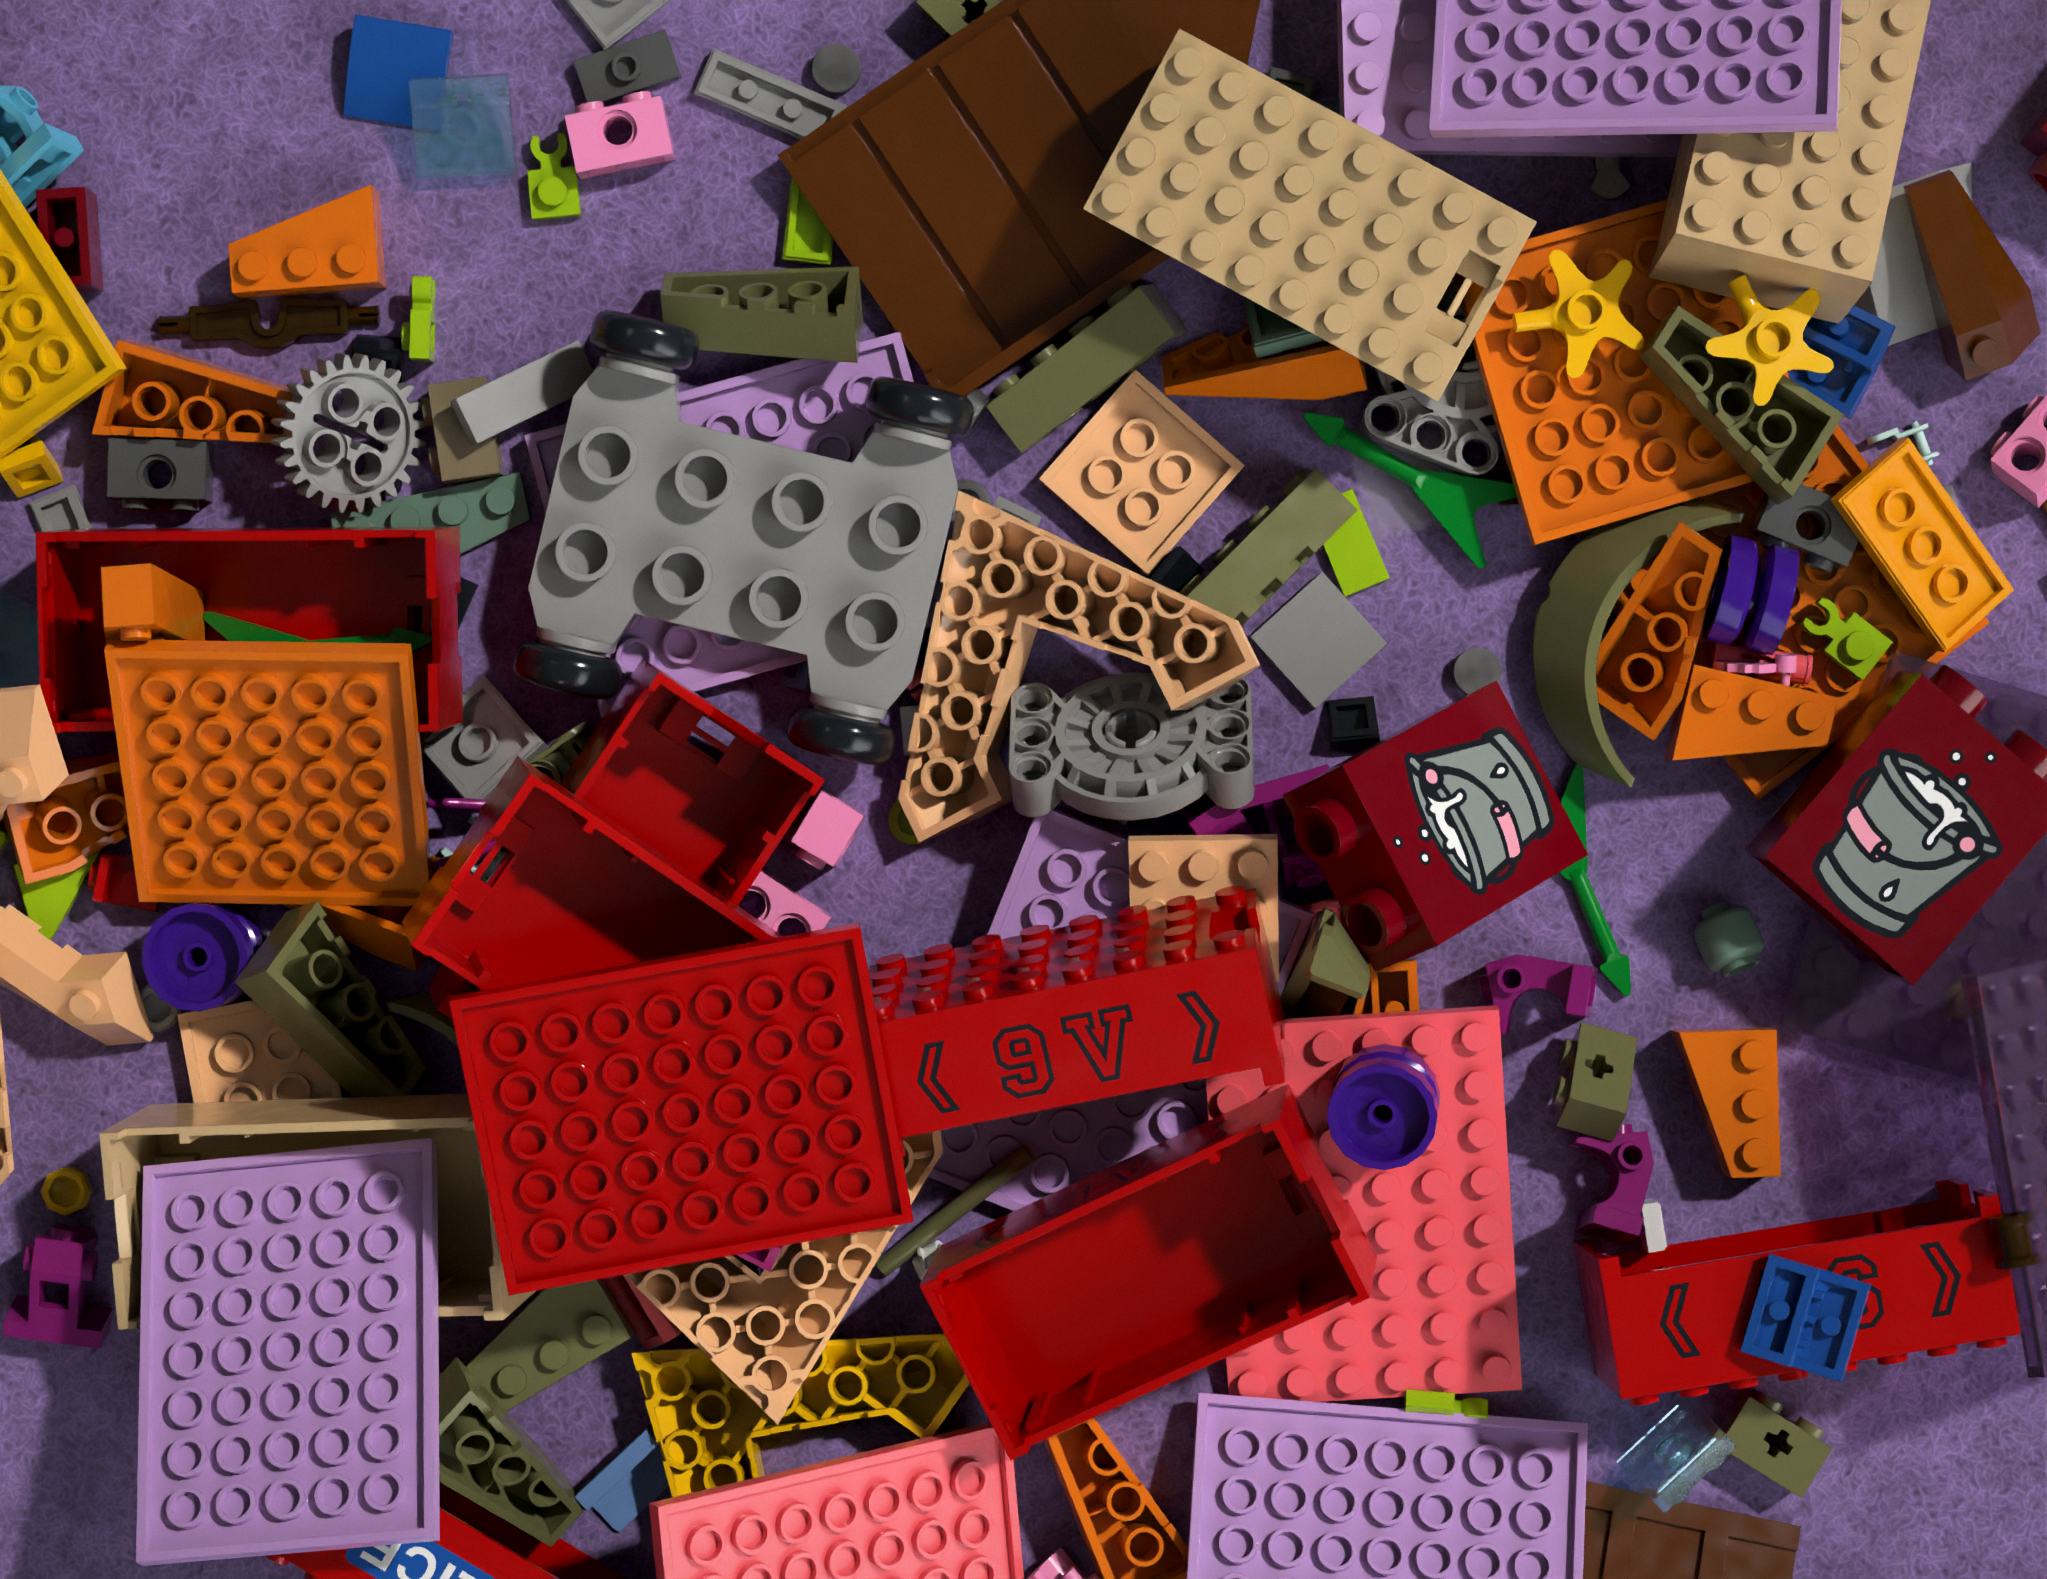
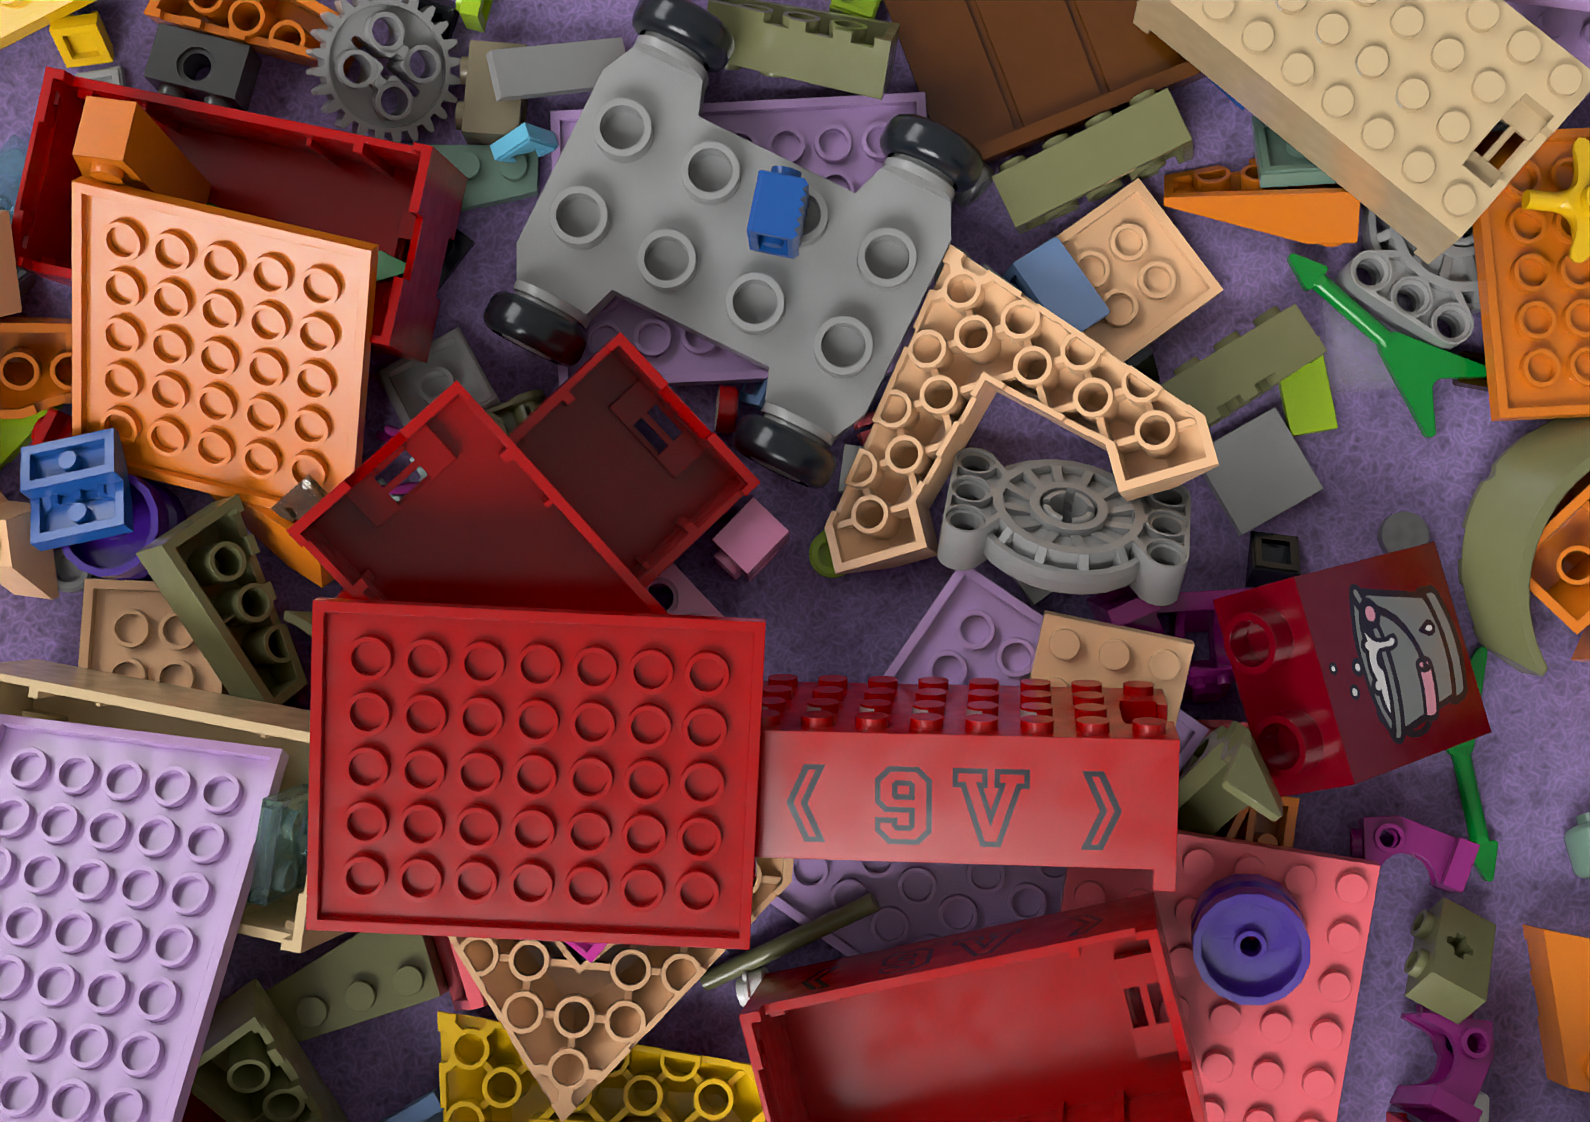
camera: 10 degrees right, 5 degrees down
(157, 931) = (76, 489): none -> blue slope
(386, 894) = (299, 499): none -> clear smoke tile
(456, 1223) = (281, 846): none -> clear light blue hinge
(508, 474) = (523, 140): none -> medium azure tile
(773, 699) = (726, 409): none -> red tile
(782, 515) = (778, 212): none -> blue brick
(1076, 505) = (1058, 284): none -> medium blue panel

